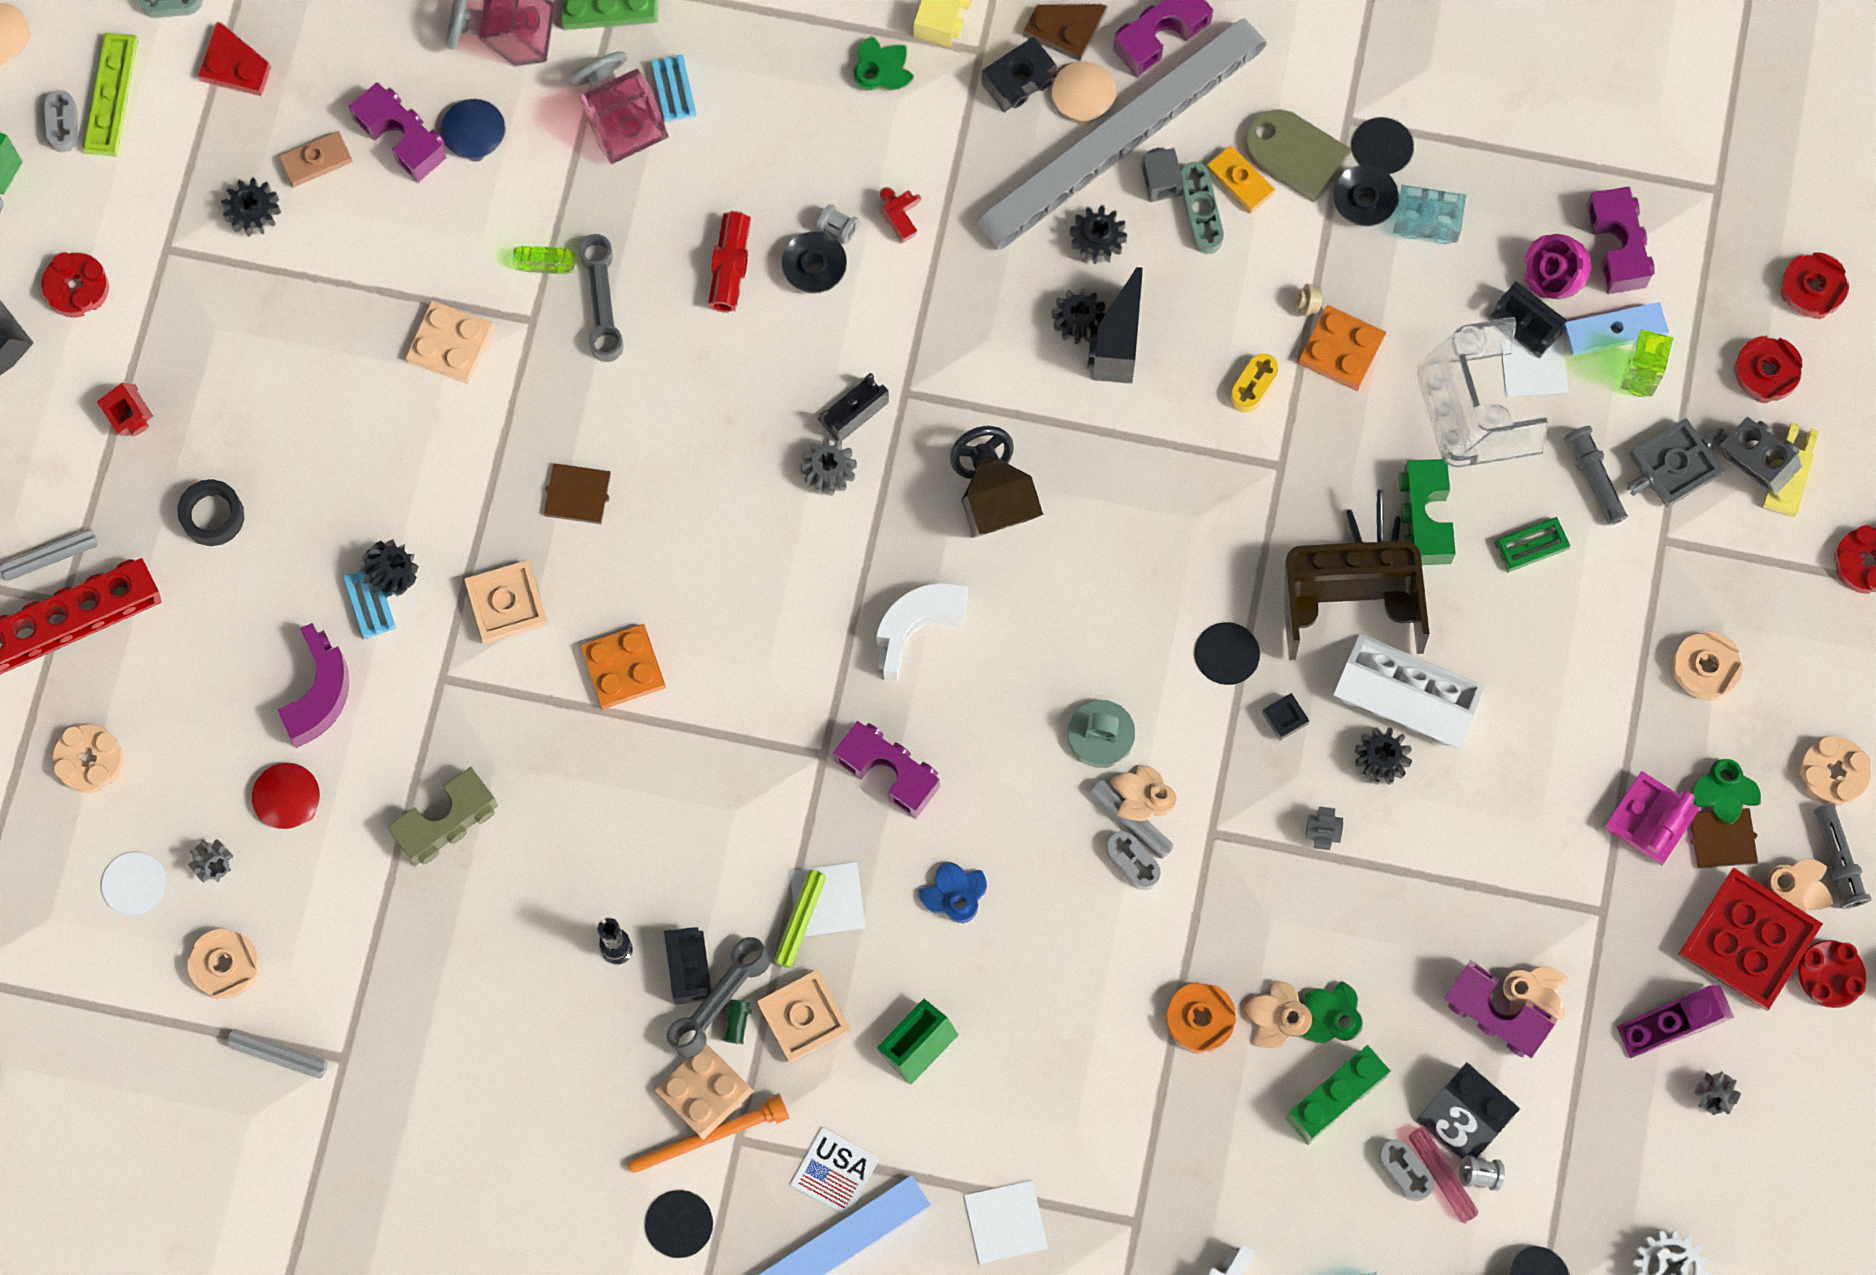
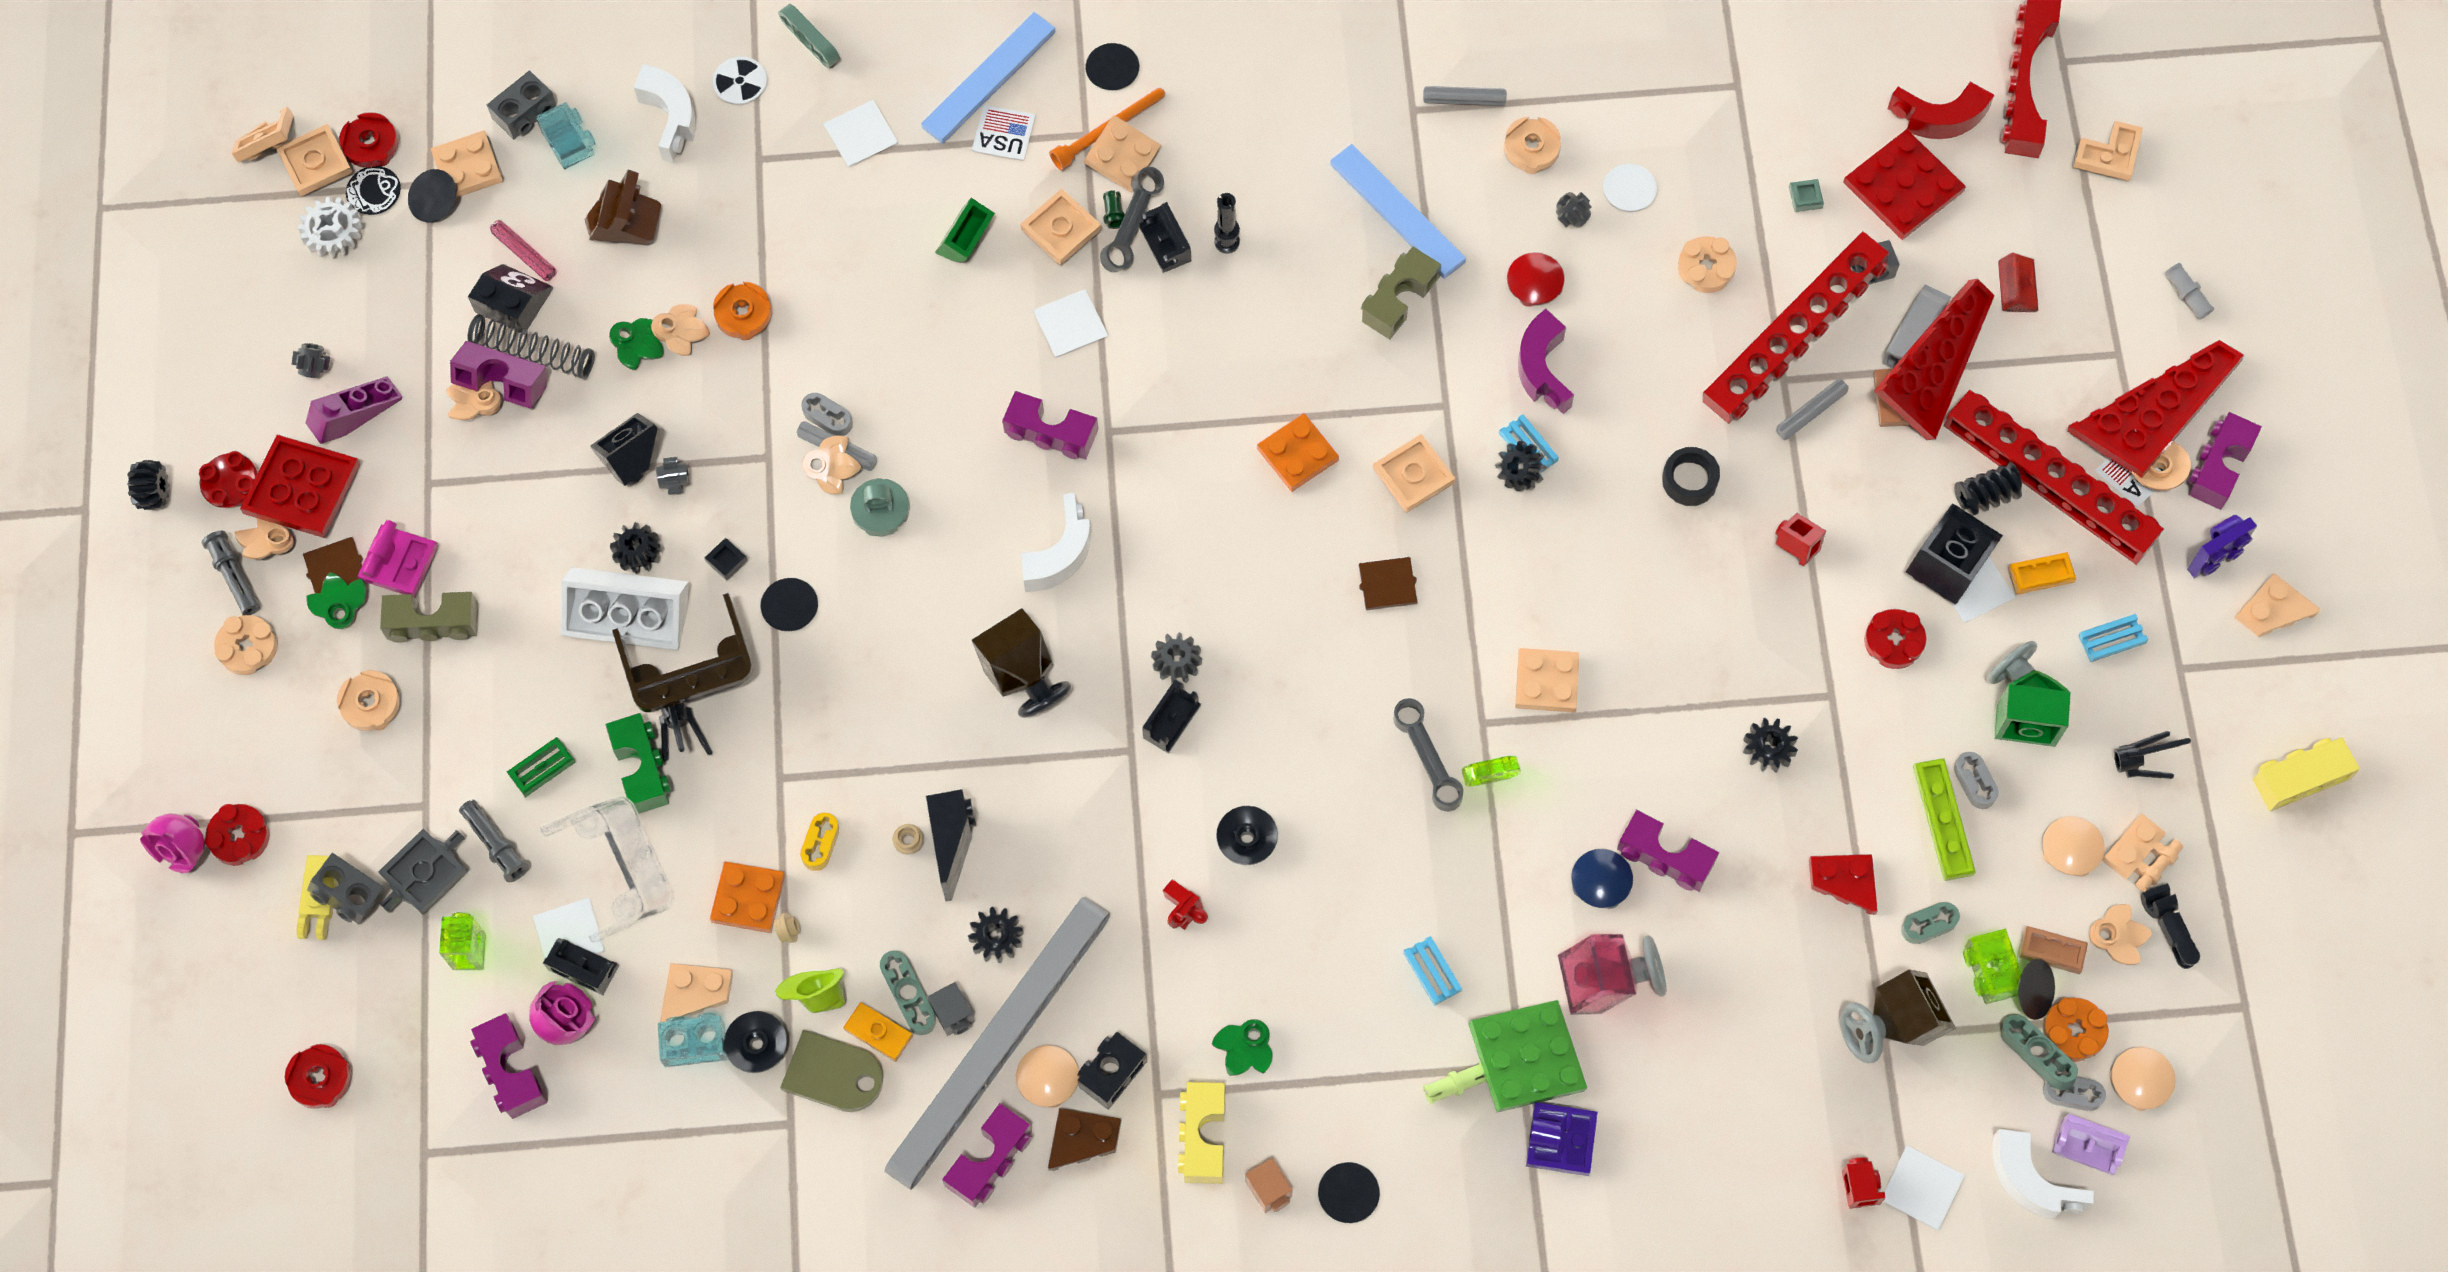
camera: 165 degrees right, 5 degrees down
(316, 159) = (1732, 810): nougat plate -> none
(410, 927) = (1397, 209): none -> light blue tile
(619, 108) = (1471, 917): clear pink piece -> none
(729, 262) = (1323, 816): red piece -> none
(799, 918) = (1086, 297): lime axle -> none
(837, 224) = (1237, 879): light grey bush -> none
(954, 887) = (969, 354): blue plate -> none
(1066, 315) = (981, 851): black gear -> none
(1167, 352) = (907, 830): none -> tan plate
(1298, 231) = (814, 989): none -> lime piece
(1317, 1179) = (623, 213): none -> reddish brown piece
(1337, 1094) = (604, 292): green arch -> none
(1369, 878) = (627, 449): none -> black slope
(1383, 144) = (751, 1107): black sticker -> none
(1413, 1165) = (556, 241): light grey beam -> none
(1416, 269) = (694, 989): none -> light nougat wing
(1481, 1173) = (491, 253): light grey bush -> none
(1517, 1074) = (580, 370): none -> dark grey piece
(1595, 332) = (481, 988): light blue tile -> none
(1656, 742) = (453, 619): none -> olive arch
(1766, 386) = (353, 1000): red plate -> none

